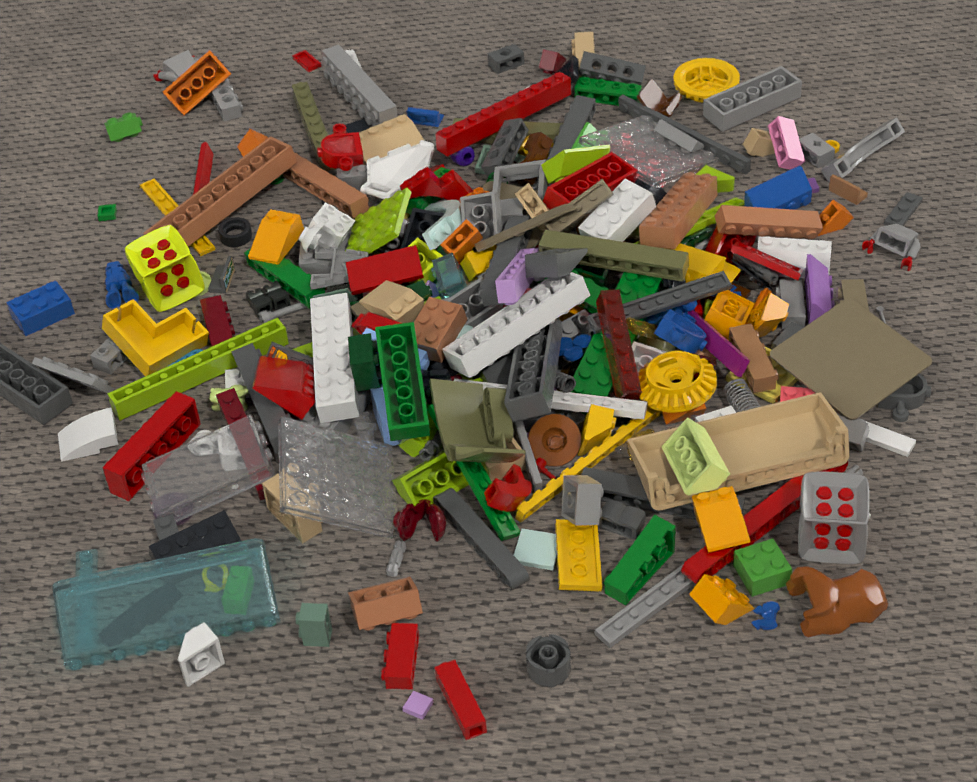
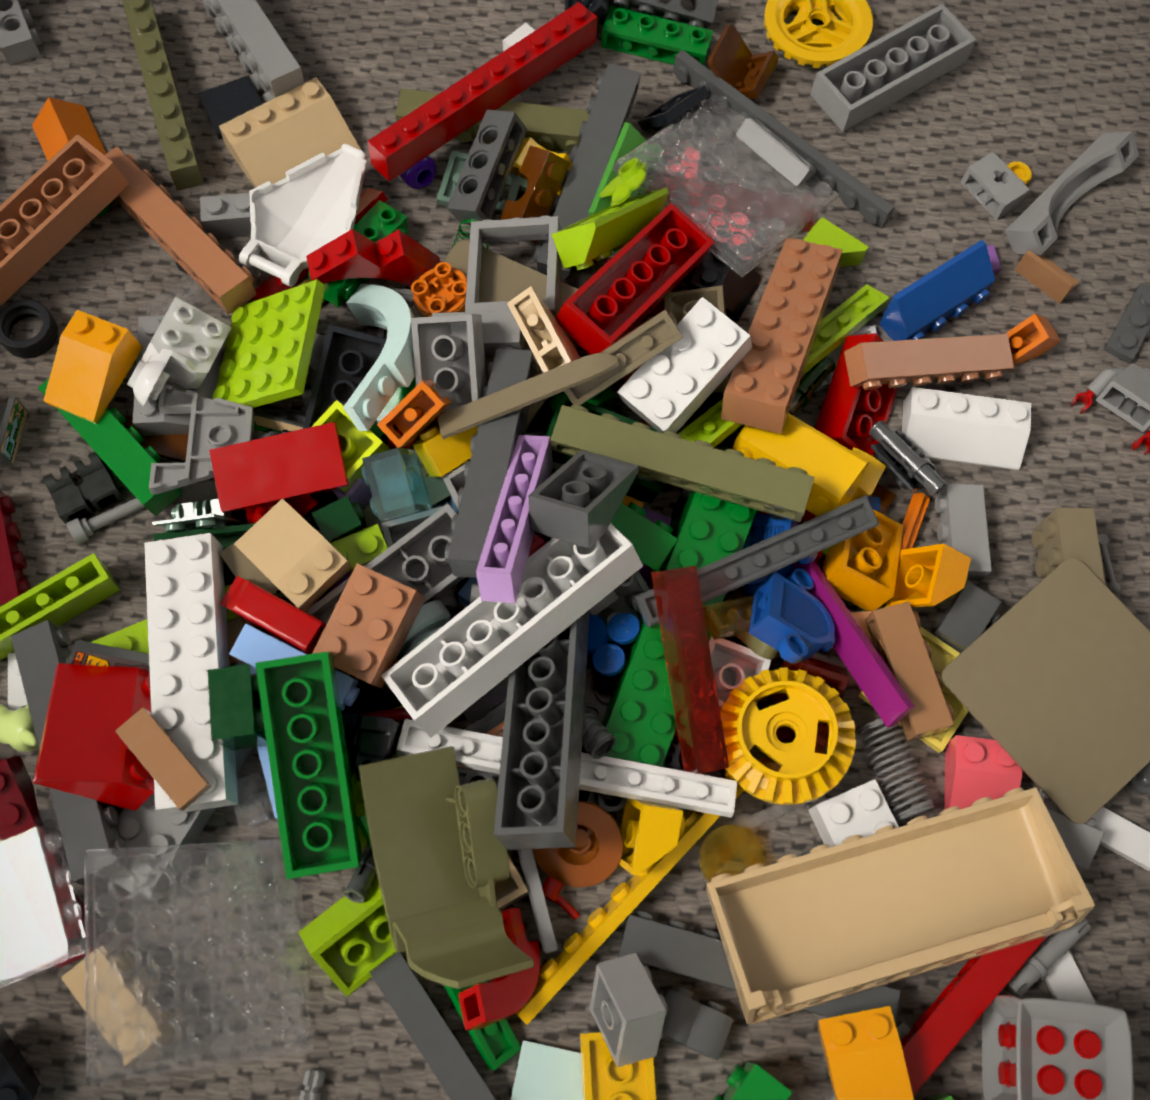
camera: 10 degrees left, 25 degrees up
(321, 381) = (163, 758): none -> medium nougat tile
(341, 149) = (205, 162): red piece -> none
(408, 517) = (323, 1035): dark red animal -> none
(424, 117) = (351, 76): blue panel -> none
(588, 140) = (630, 178): none -> lime plate
(622, 117) = (674, 108): none -> black plate
(695, 458) = (825, 942): yellowish green slope -> none
(759, 143) = (918, 165): tan slope -> none
(767, 260) = (928, 447): red tile -> none
(786, 143) = (952, 175): bright pink brick -> none
(817, 289) = (1008, 517): medium lavender slope -> none

